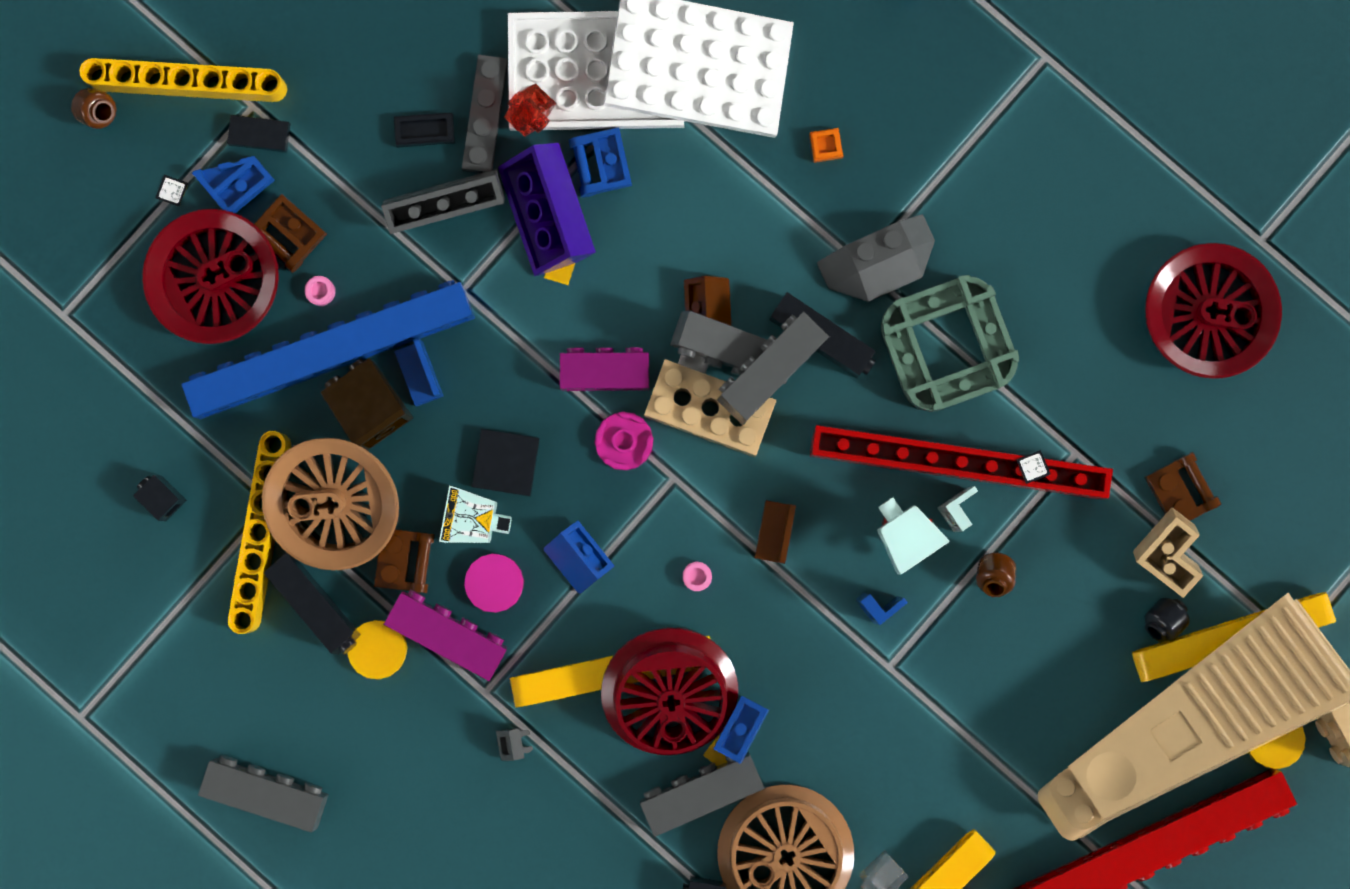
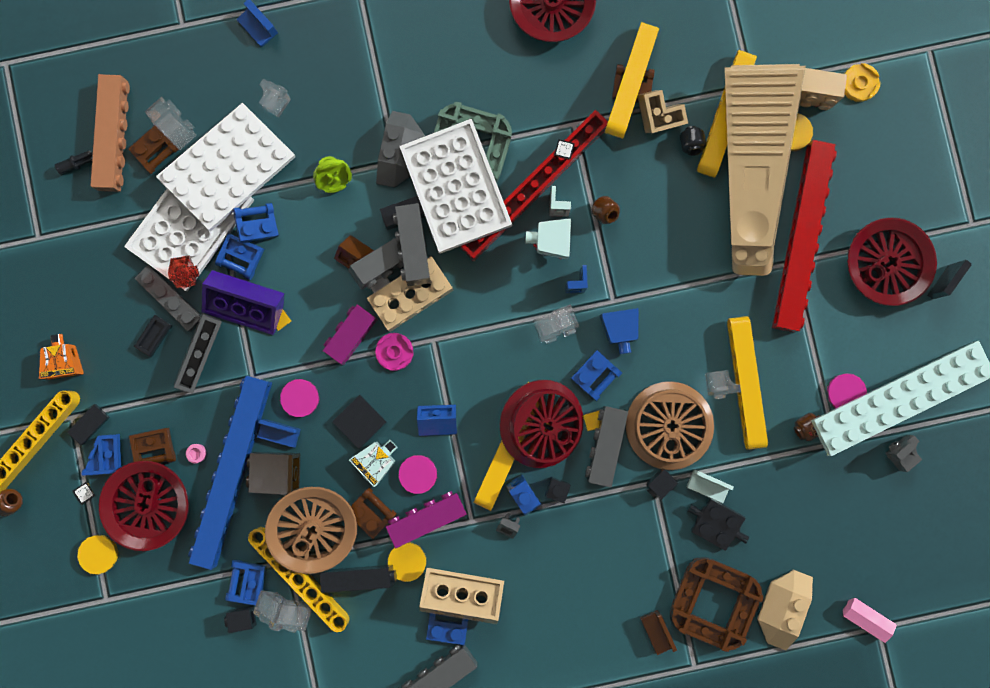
camera: 50 degrees left, 0 degrees up
(110, 263) = (97, 554): none -> yellow tile
(203, 542) = (282, 613): none -> clear brick
(212, 478) = (252, 582): none -> blue plate
(311, 39) = (59, 360): none -> orange torso
(328, 761) = (446, 630): none -> blue plate
(405, 749) = (470, 585): none -> tan brick
(480, 367) = (299, 398): none -> dark pink tile
(564, 733) = (523, 495): none -> blue torso
(602, 772) = (557, 490): none -> black brick
(650, 158) = (255, 229): none -> blue plate
(697, 576) = (492, 365): bright pink tile -> none
(741, 729) = (588, 400): blue panel -> none
(775, 531) = (499, 307): reddish brown panel -> none
(786, 200) = (332, 175): none -> lime tile
(786, 705) = (591, 371): none -> blue plate
(806, 617) = (555, 324): none -> clear brick
(826, 145) = (319, 133): orange tile -> none
(828, 57) = (274, 97): none -> clear brick
(862, 703) = (621, 328): none -> blue torso
(885, 366) = (455, 186): none -> white plate
(1184, 487) = (631, 80): none -> yellow beam

